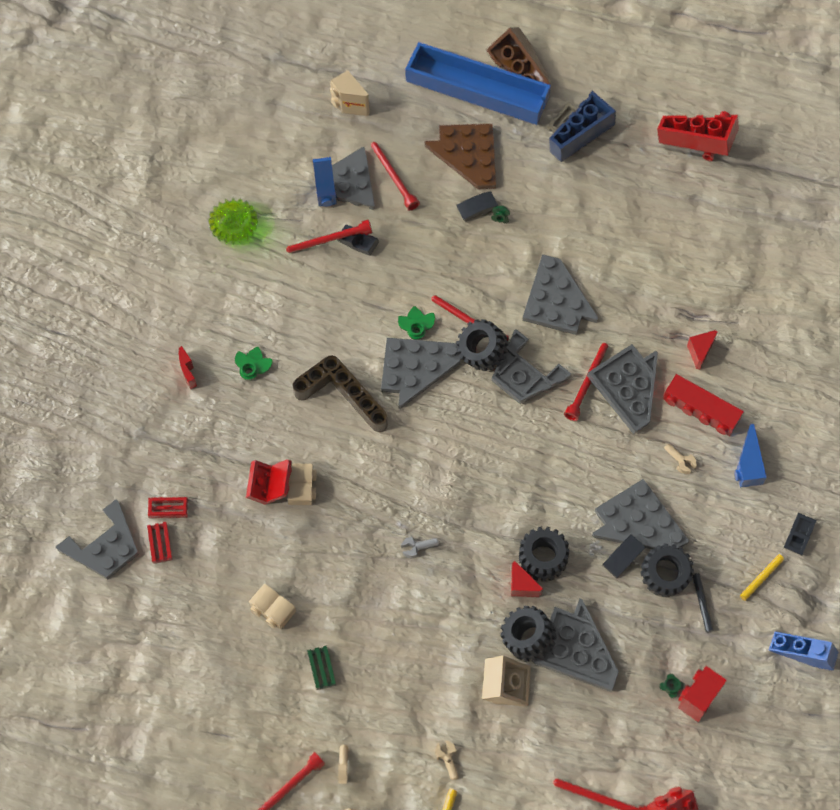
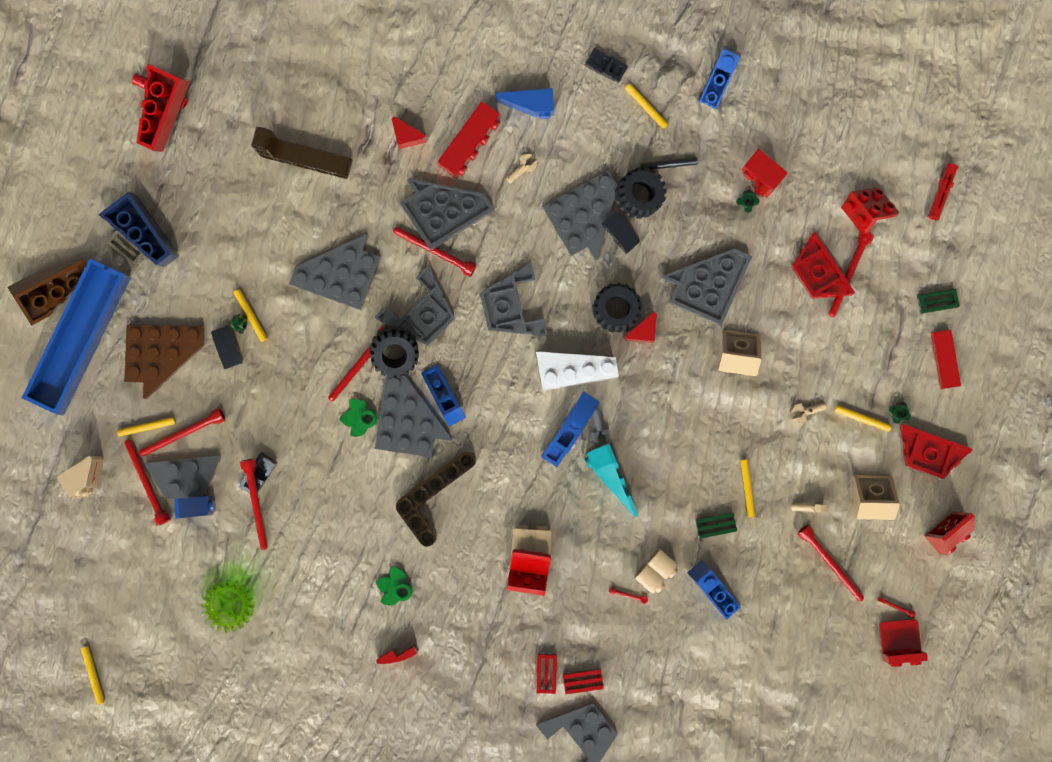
camera: 90 degrees left, 20 degrees up
(169, 119) = (92, 675): none -> yellow bar
(242, 598) = (643, 599): none -> red hinge
(253, 666) = (713, 589): none -> blue slope
(352, 146) = (161, 516): none -> red piece
(362, 699) = (747, 488): none -> yellow bar
(378, 551) = (606, 468): none -> teal wedge
(398, 145) = (146, 426): none -> yellow bar
(416, 514) = (570, 429): none -> blue slope
(441, 395) = (443, 395): none -> blue slope
(475, 511) = (567, 370): none -> white wedge
(508, 225) = (250, 315): none -> yellow bar
(536, 645) = (692, 342): black tyre -> none
(538, 446) = (504, 309): none -> dark grey wing
(601, 764) = (820, 272): none -> red wing
(669, 251) = (270, 147): none -> dark brown beam

